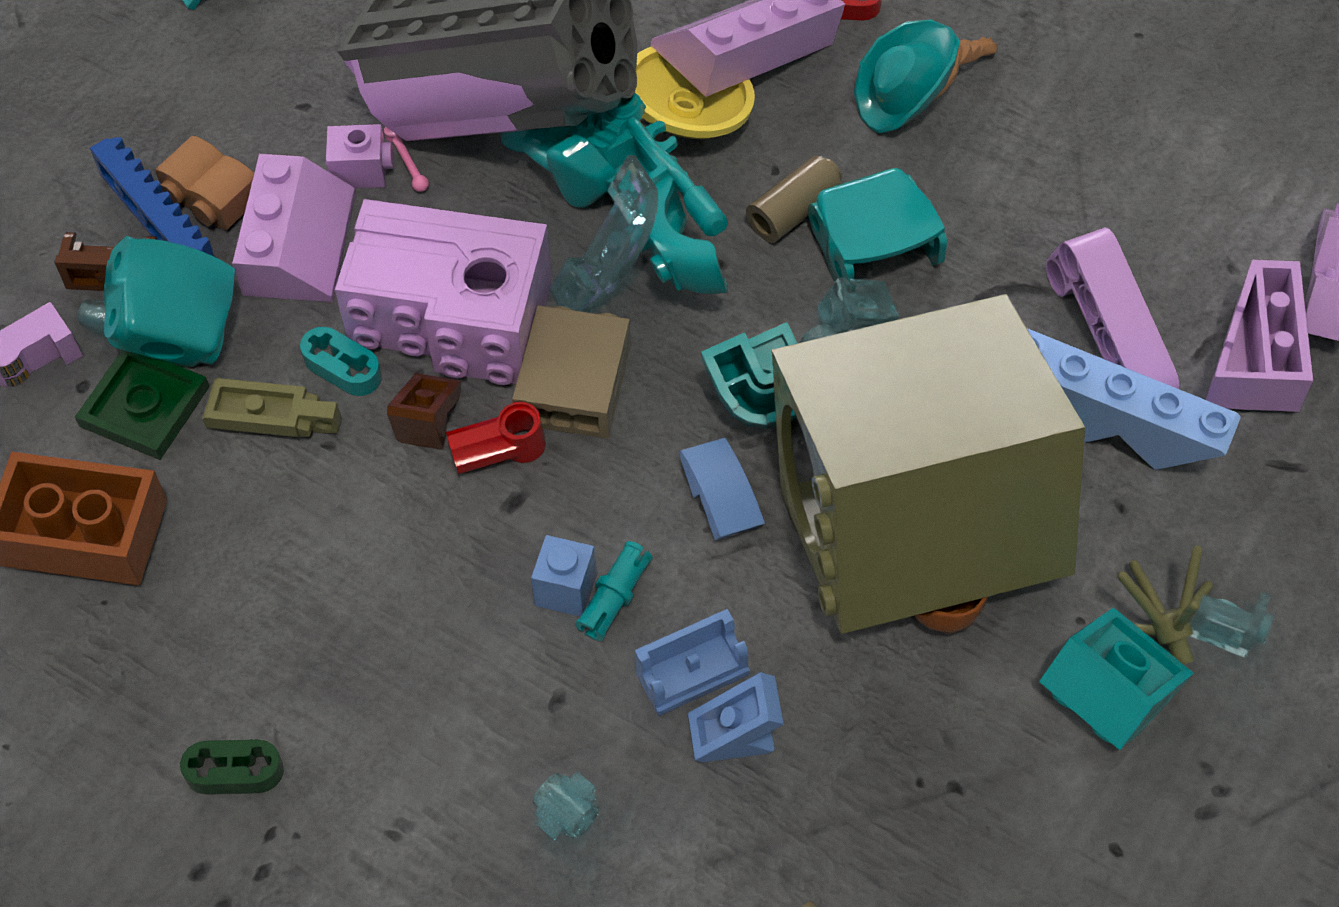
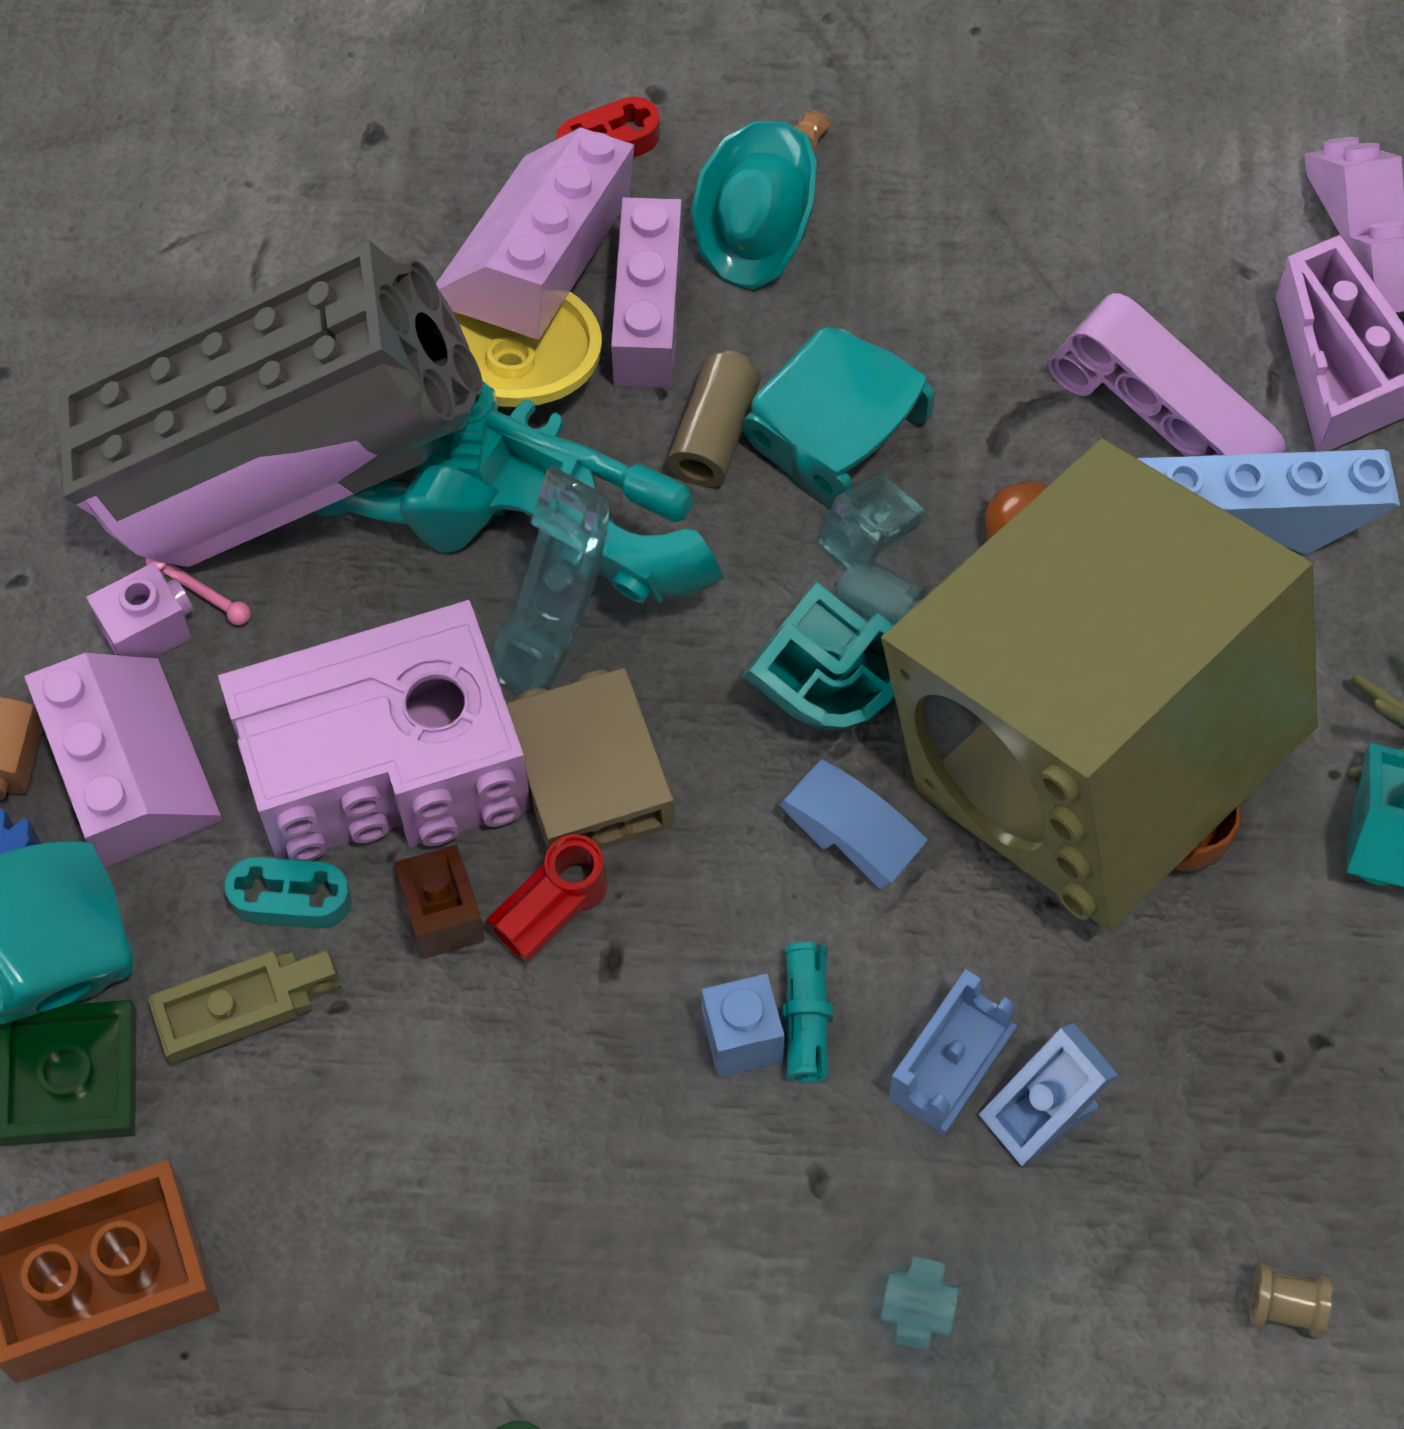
camera: 30 degrees left, 5 degrees up
(811, 82) = (647, 292): none -> lavender arch

